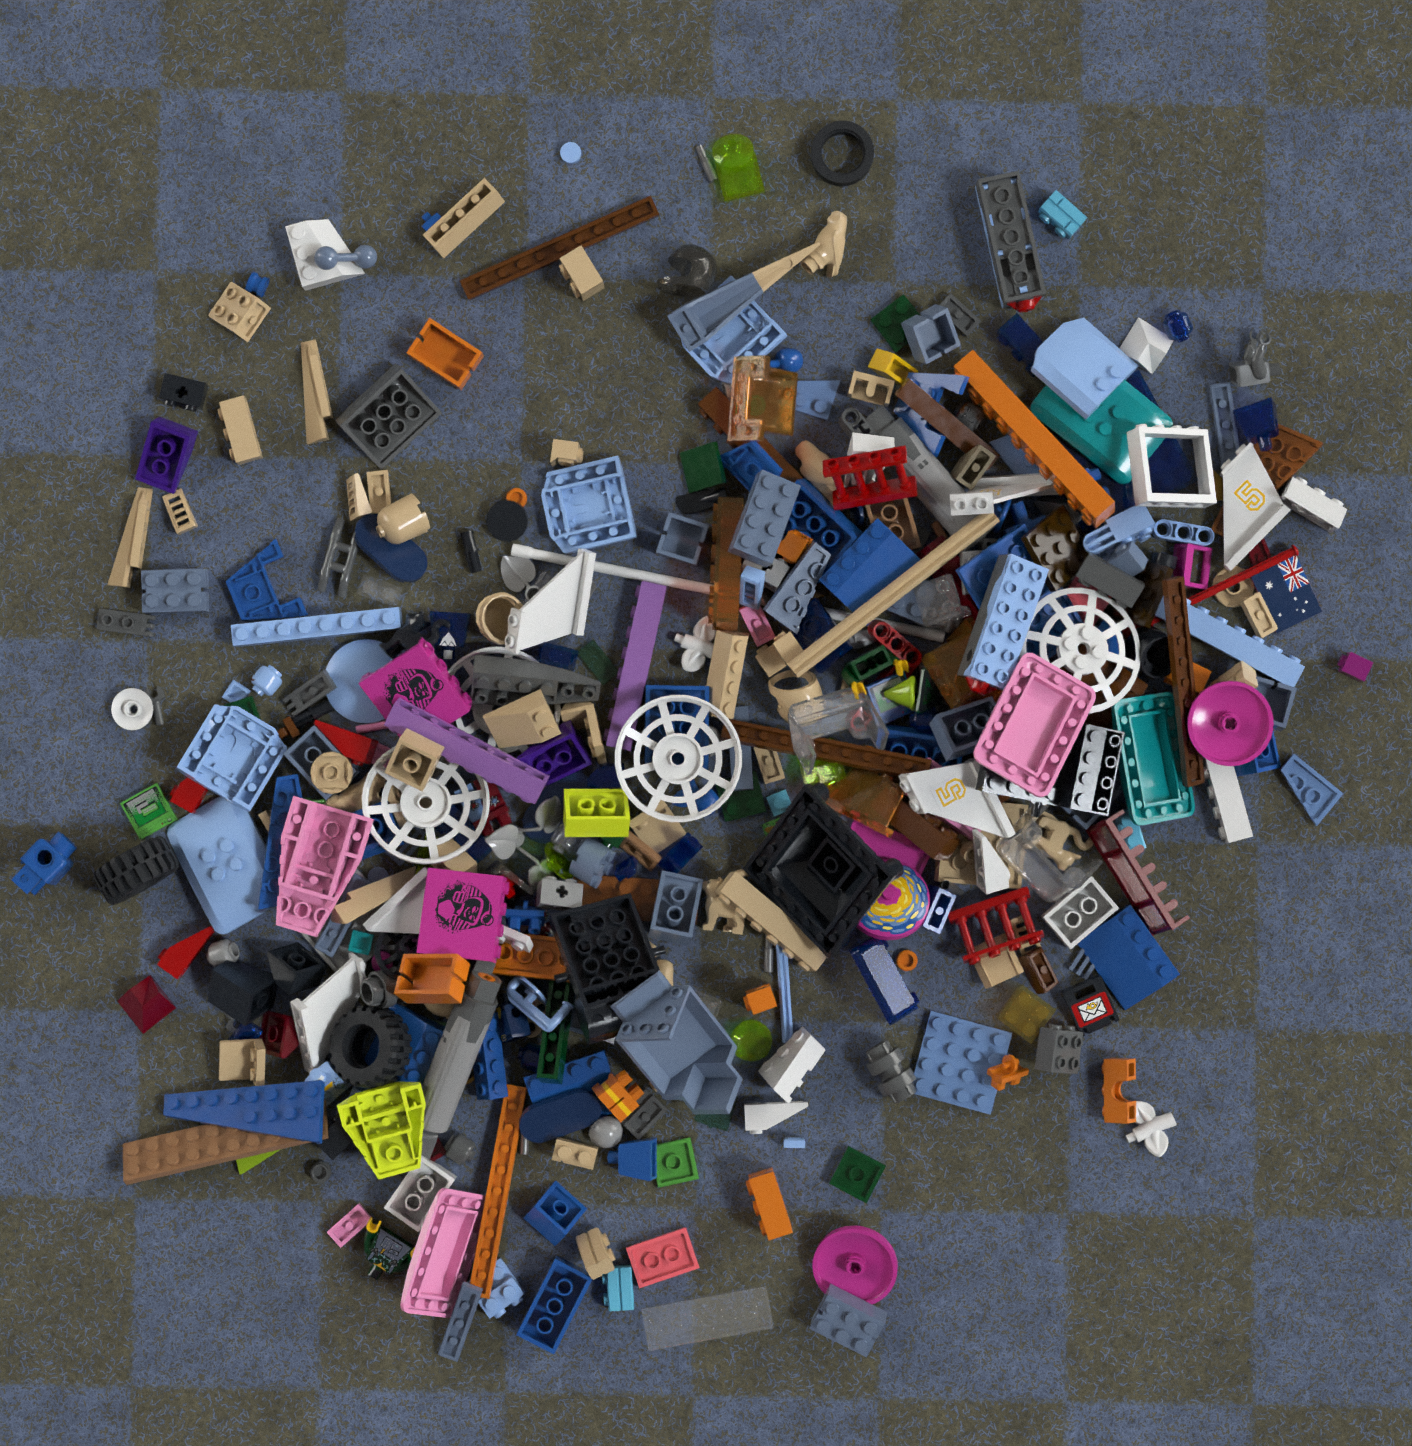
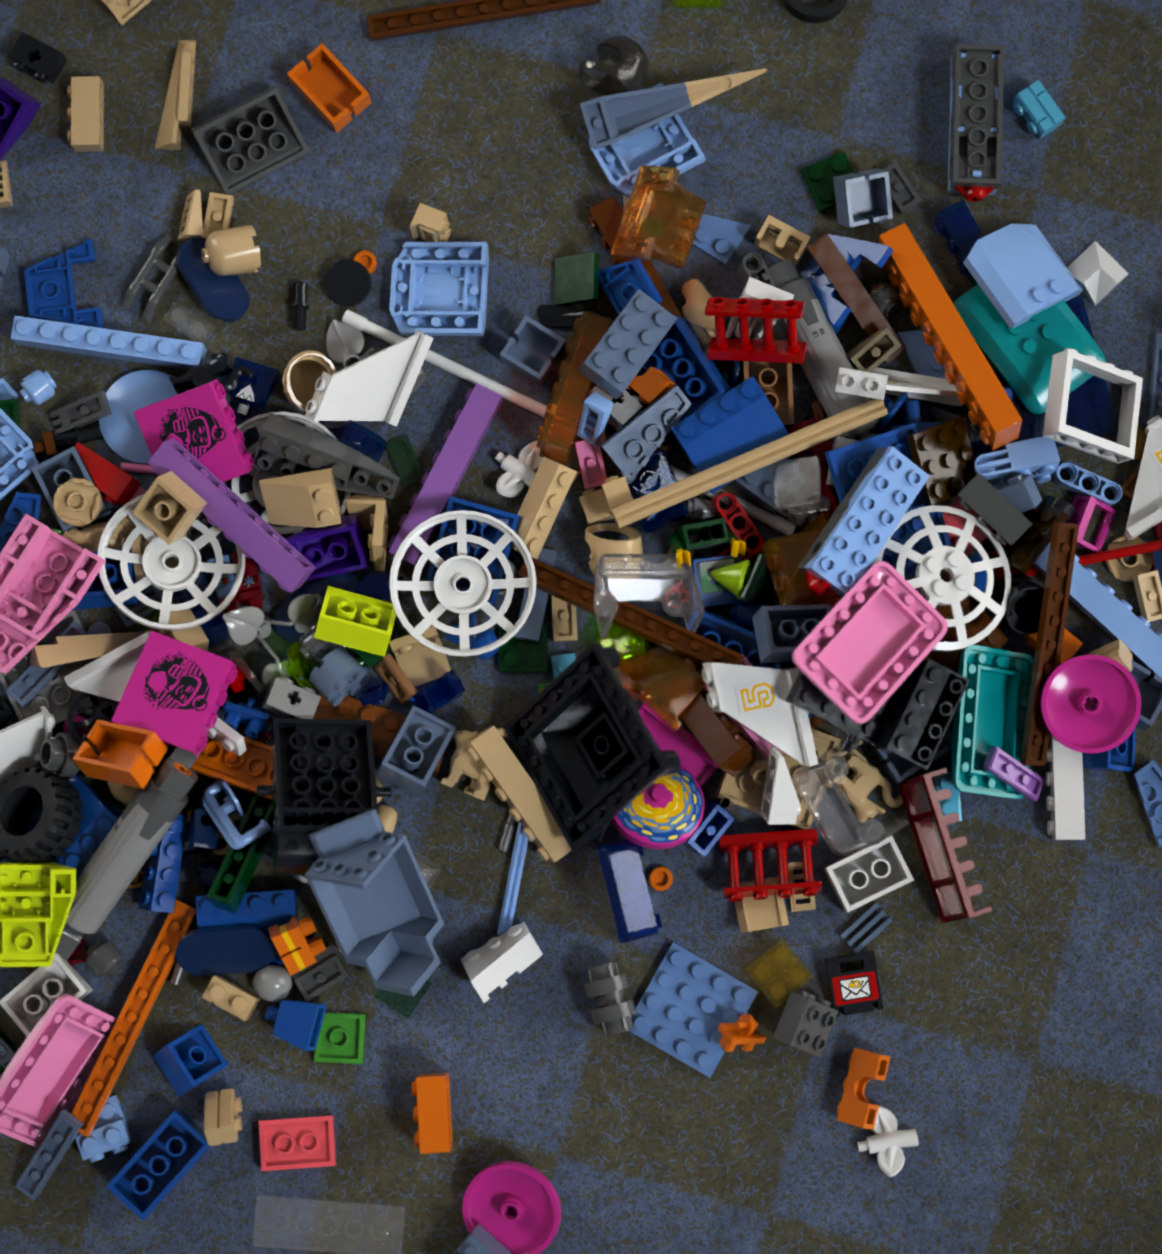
camera: 15 degrees right, 5 degrees down
(361, 942) = (58, 698): teal plate -> none
(581, 273) = (498, 39): tan brick -> none
(619, 1288) = (238, 1165): medium azure brick -> none
(752, 1040) = (463, 923): clear neon green dish -> none
(759, 999) = (483, 876): orange arch -> none
(767, 1114) = (457, 1011): white slope -> none
(787, 359) = (701, 186): blue piece -> none
(793, 1142) = (480, 1051): light blue tile -> none
(831, 246) = (776, 80): tan animal -> none
(857, 1174) = (542, 1106): dark green plate -> none
(890, 366) = (809, 220): yellow slope -> none
(1038, 970) = (805, 929): reddish brown slope -> none
(1128, 957) = (910, 940): blue slope -> none
(1177, 326) = (1136, 259): clear blue head -> none
(1180, 796) = (1014, 773): none -> medium lavender tile

